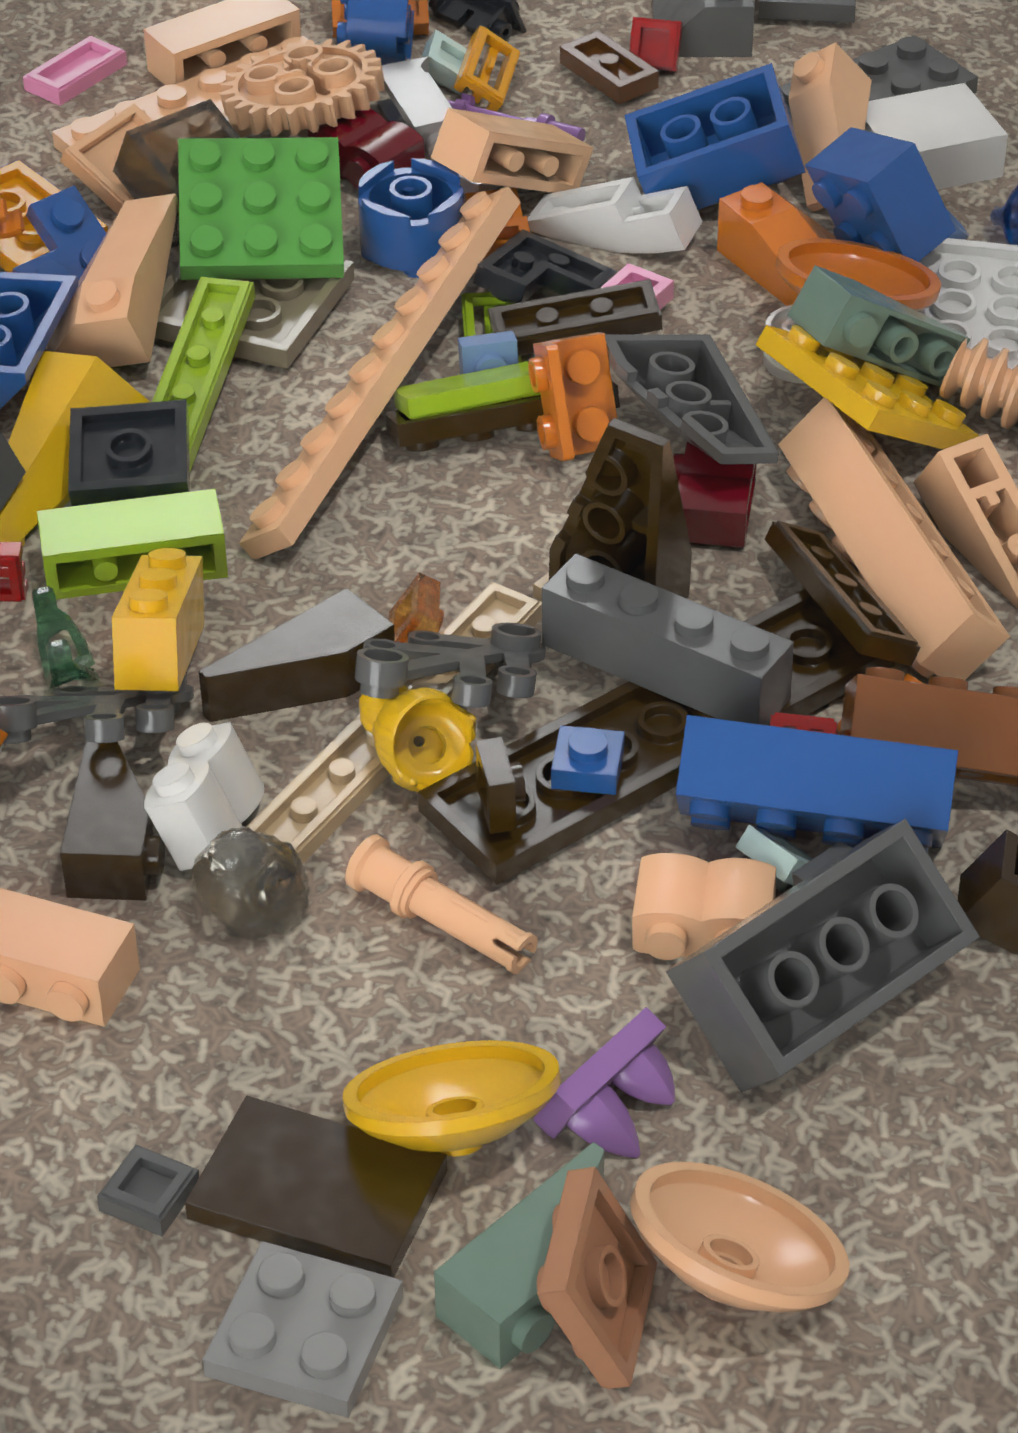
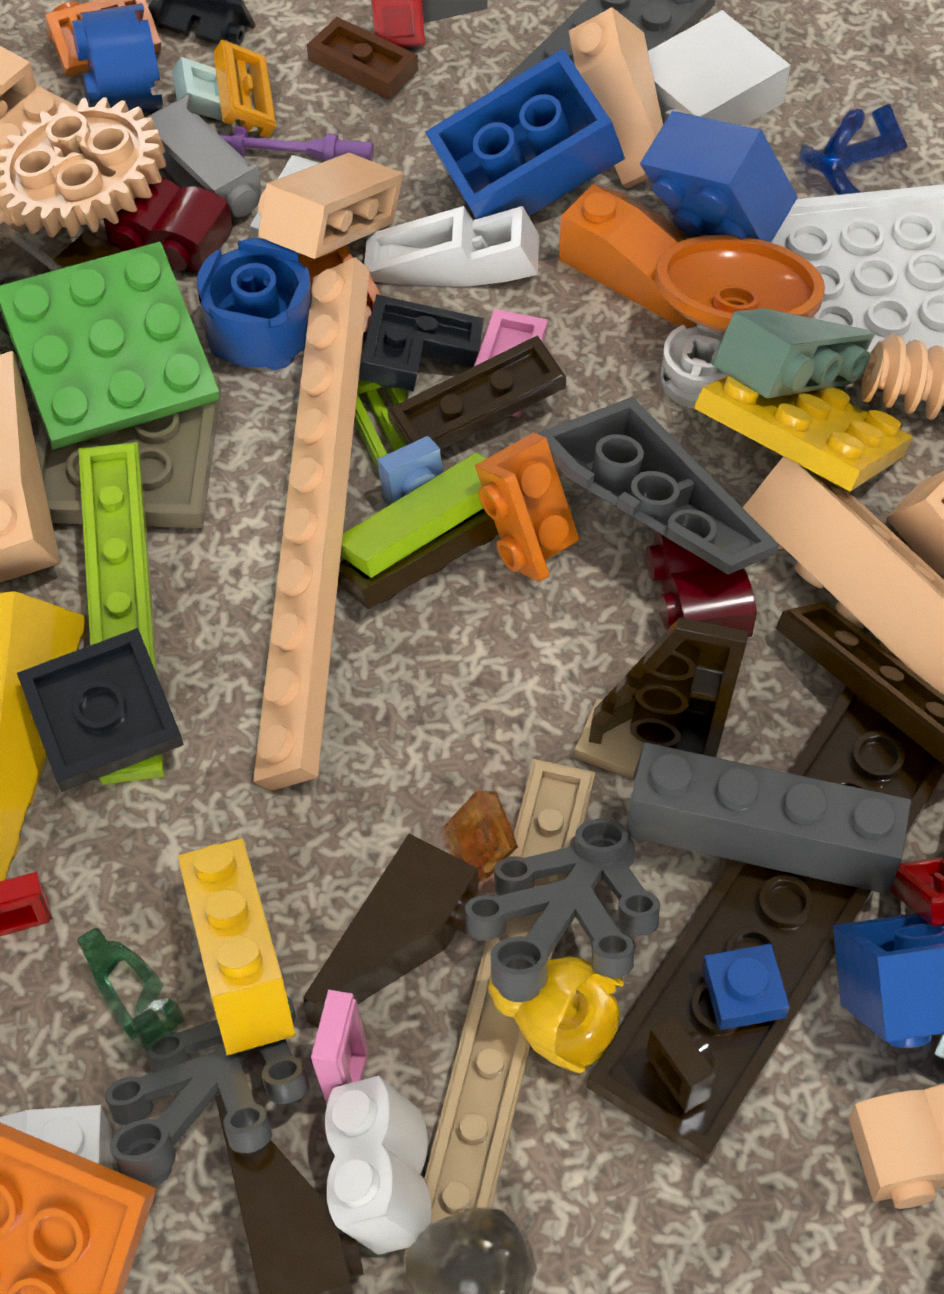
camera: 20 degrees left, 15 degrees up
(99, 544) = (145, 821): lime brick -> none
(209, 690) = (340, 1043): none -> bright pink tile
(416, 891) = (638, 1209): light nougat pin -> none

